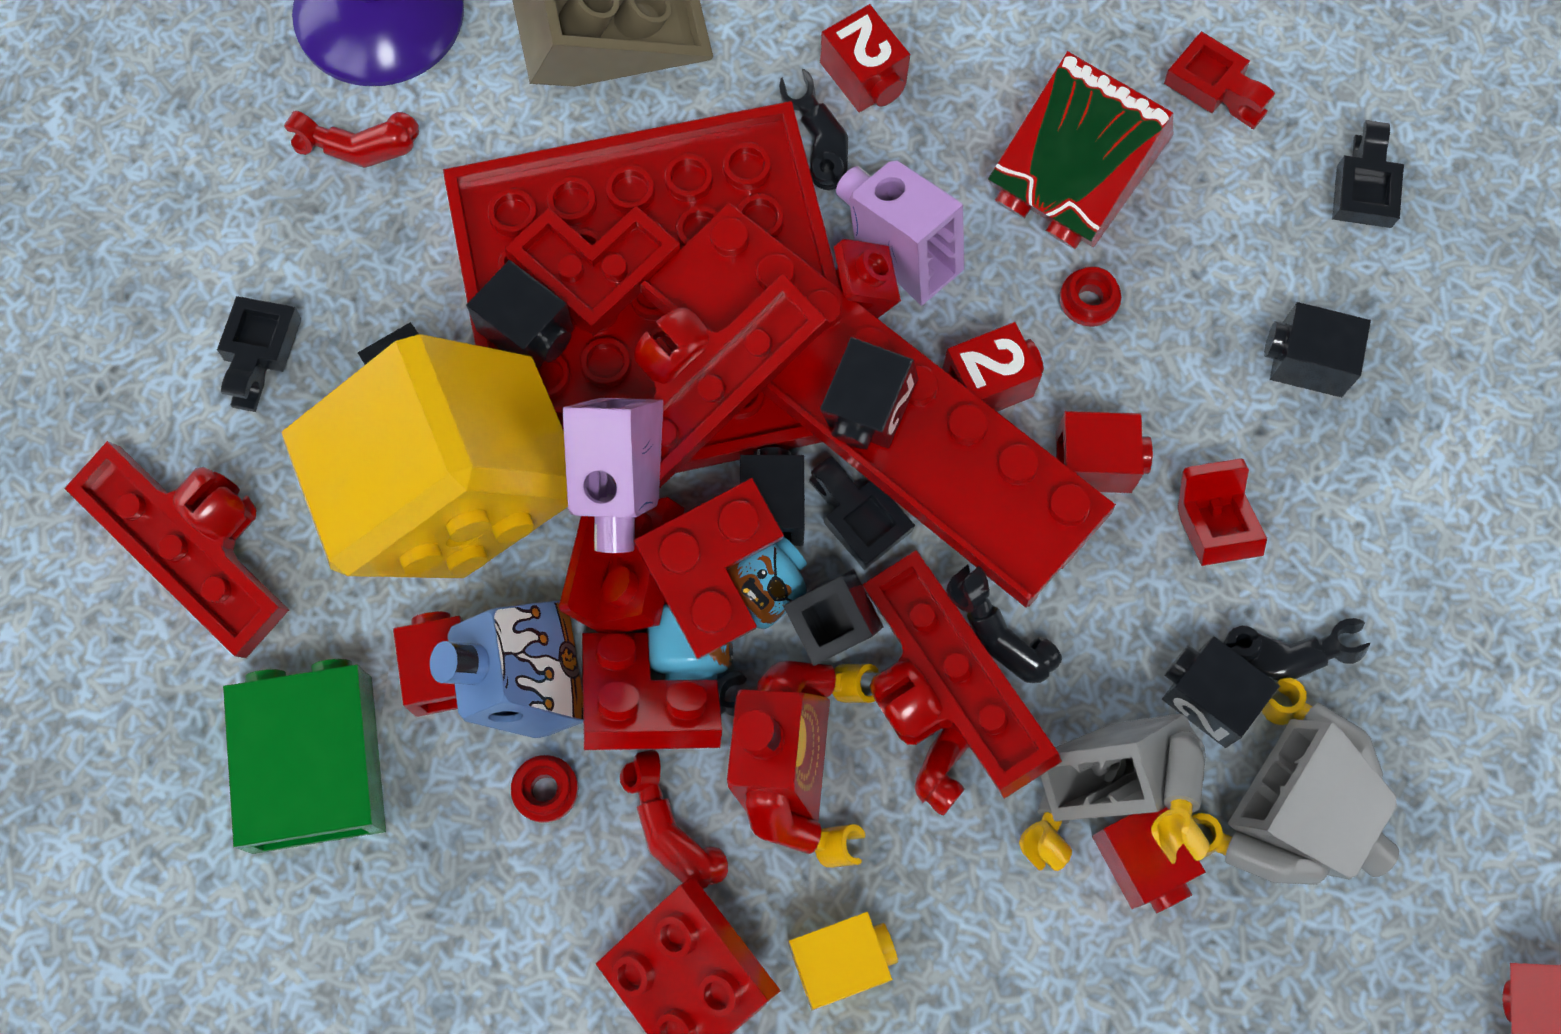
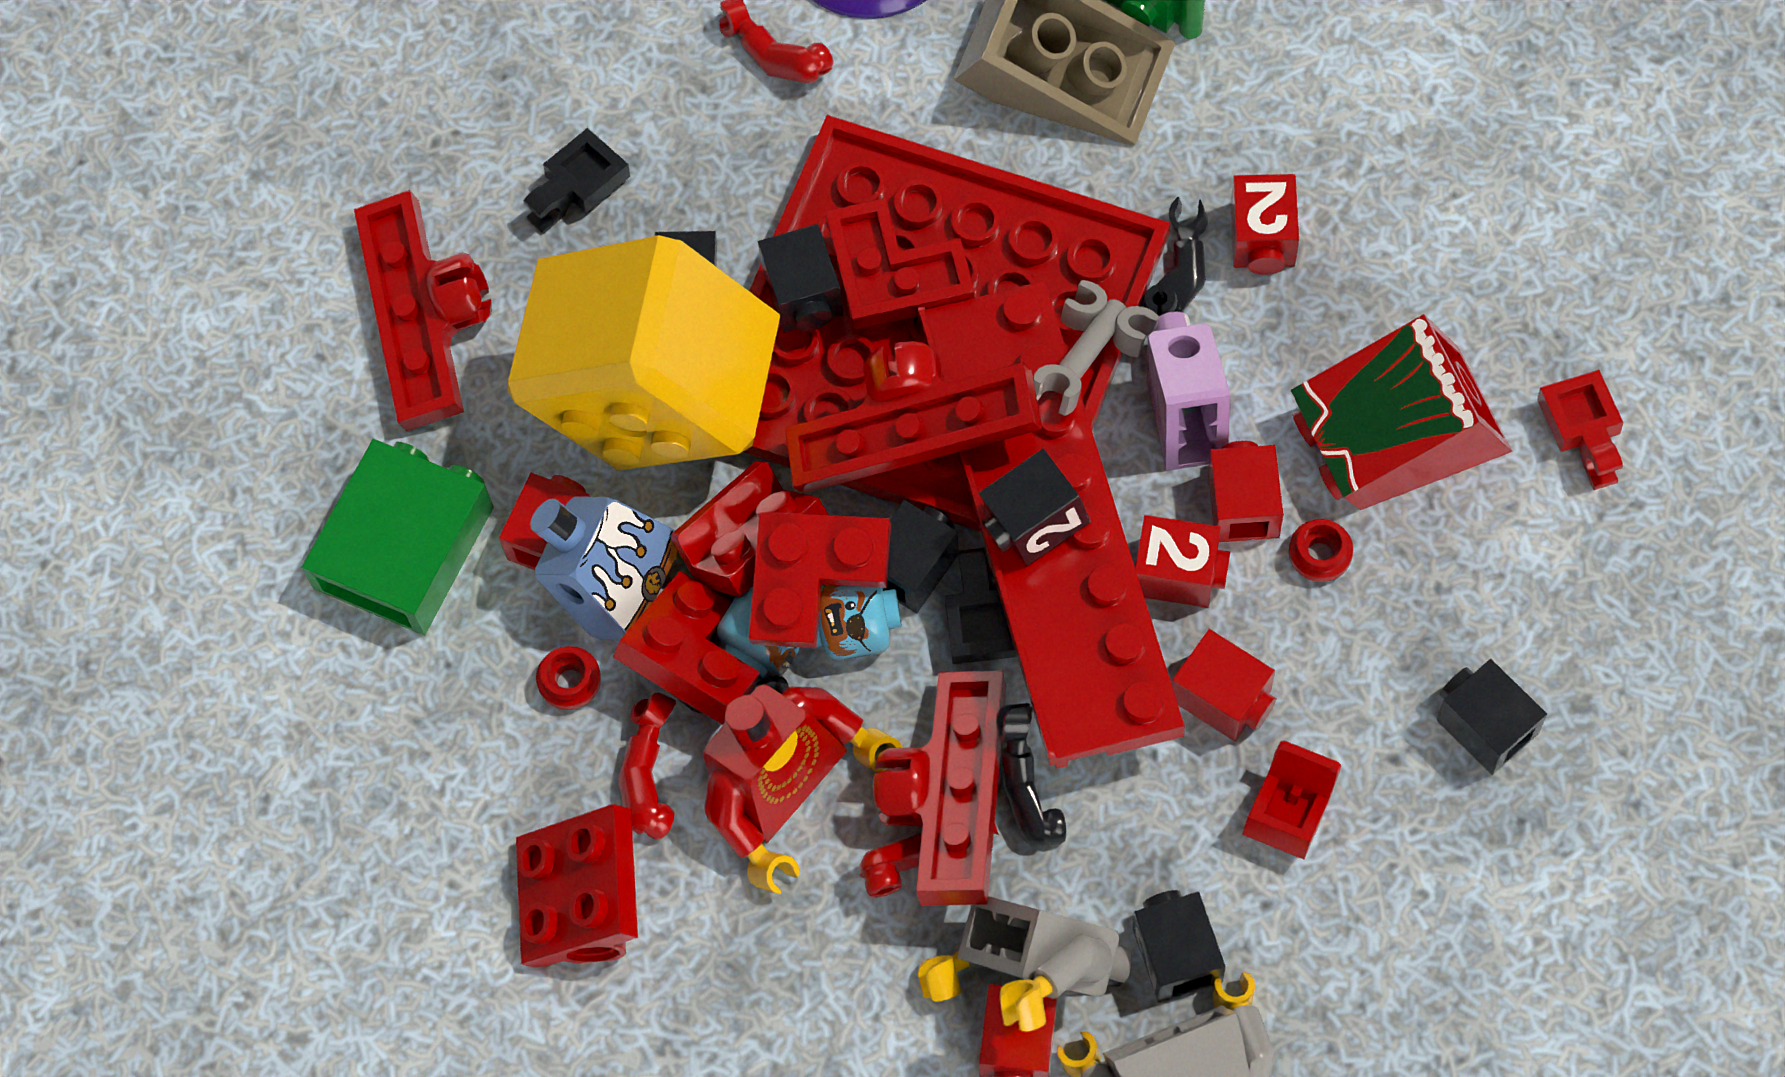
camera: 40 degrees right, 5 degrees down
(610, 442) = (784, 439): lavender torso -> none
(805, 208) = (1100, 322): none -> light grey bar
(833, 617) = (890, 679): black brick -> none
(843, 959) = (707, 956): yellow brick -> none
(867, 275) = (1117, 412): red bracket -> none
(1004, 282) = (1245, 491): none -> red brick
(1298, 659) = (1255, 955): black arm -> none
(1366, 184) = (1658, 600): black plate -> none

